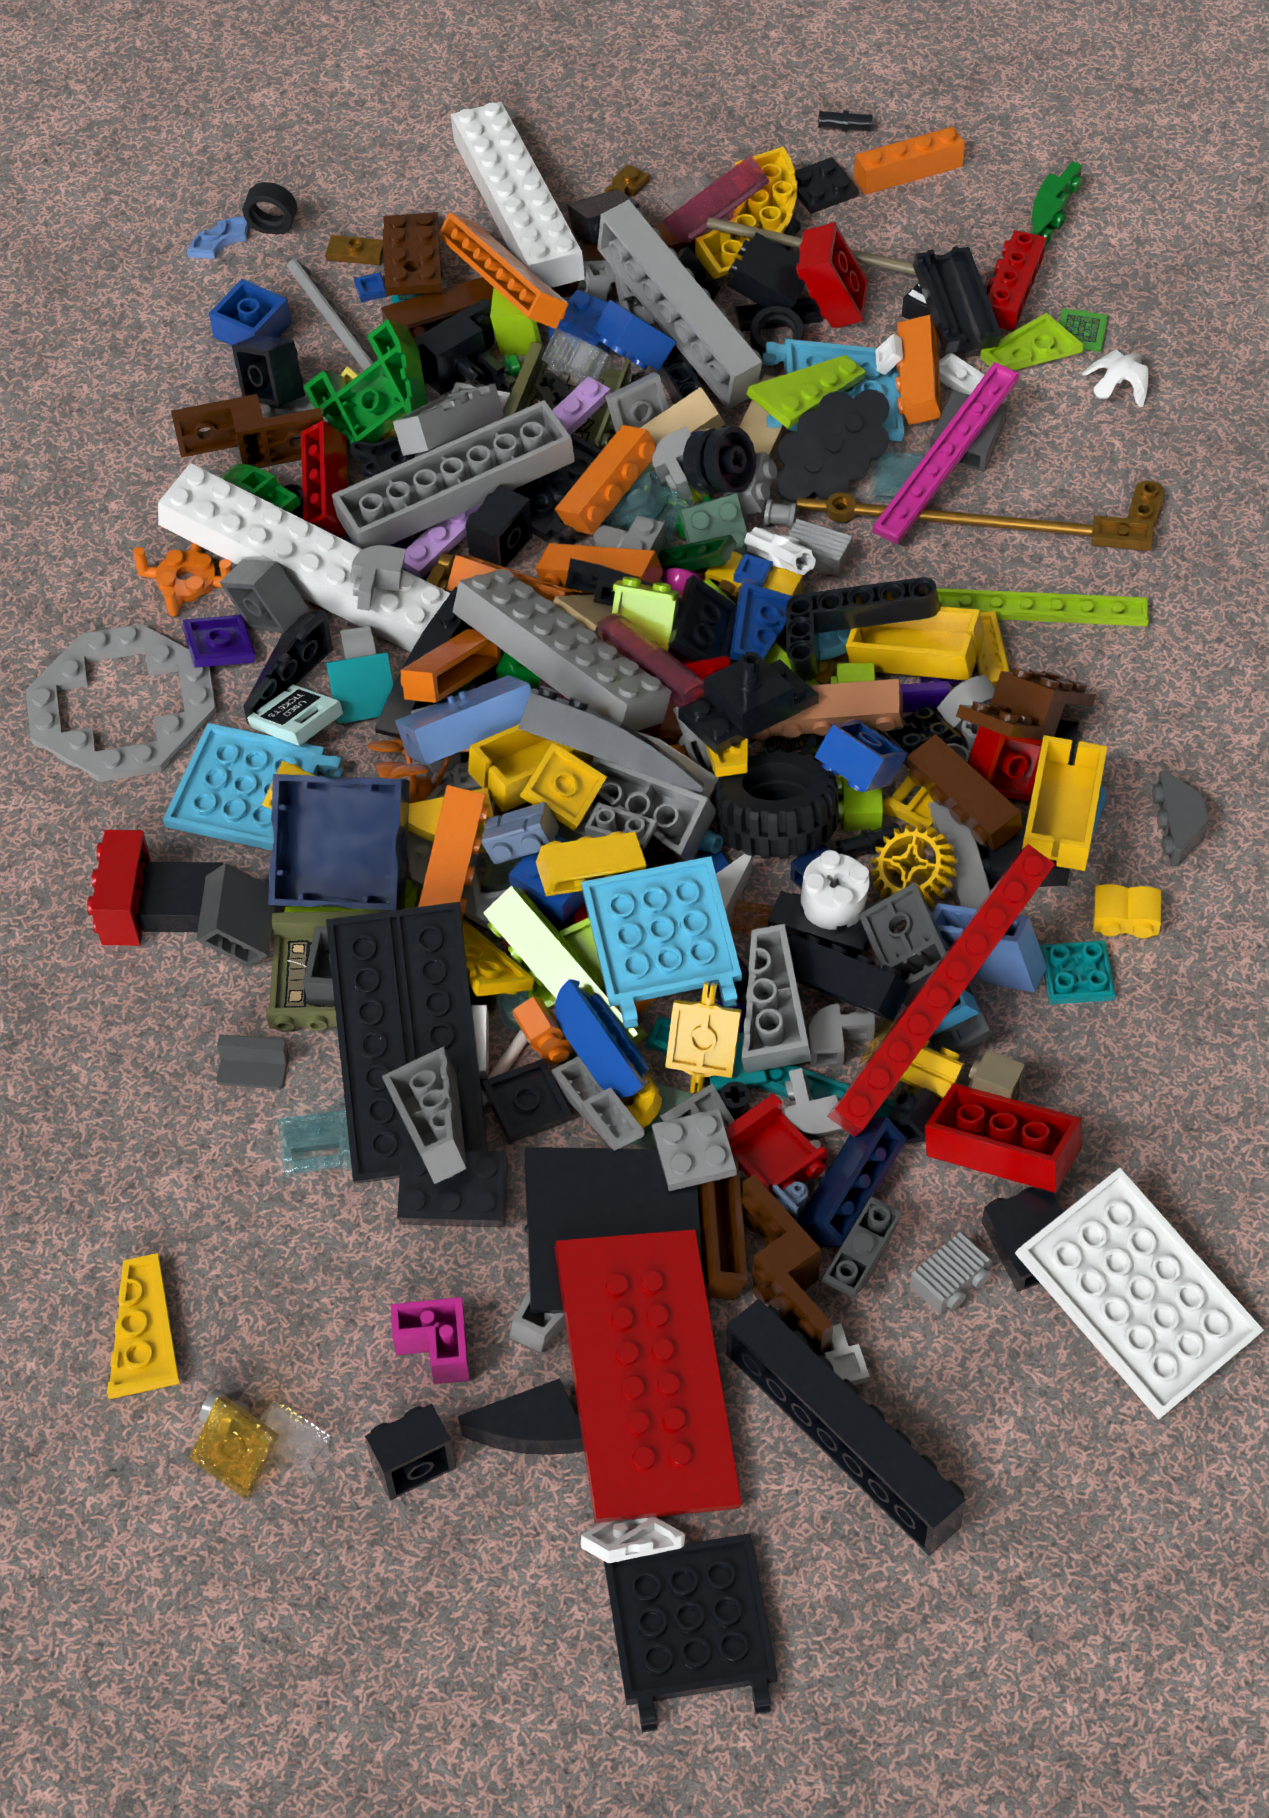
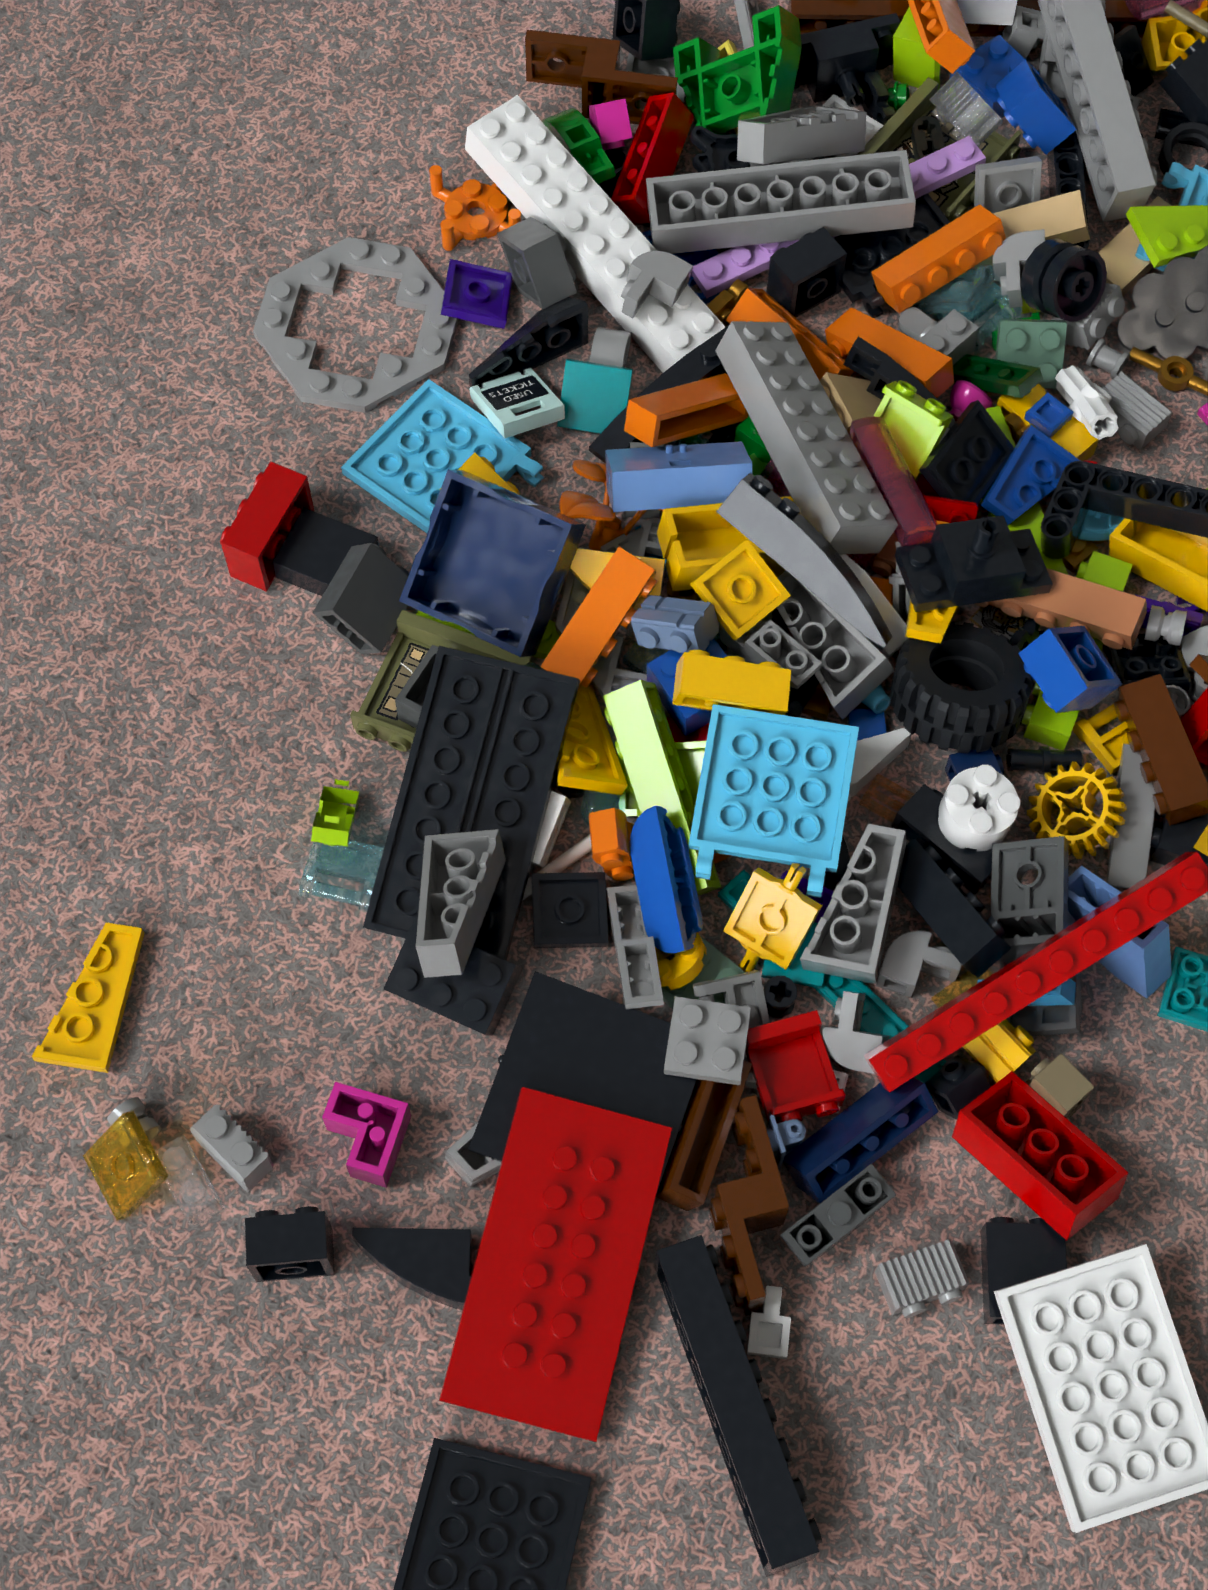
camera: 20 degrees right, 10 degrees up
(252, 1061) = (318, 758): dark grey panel -> none
(278, 461) = (611, 123): none -> dark pink slope
(289, 1106) = (334, 820): none -> lime piece
(321, 1397) = (232, 1147): none -> light grey brick
(631, 1539) = (467, 1434): white wing -> none
(923, 699) = (1168, 626): none -> light grey wheel

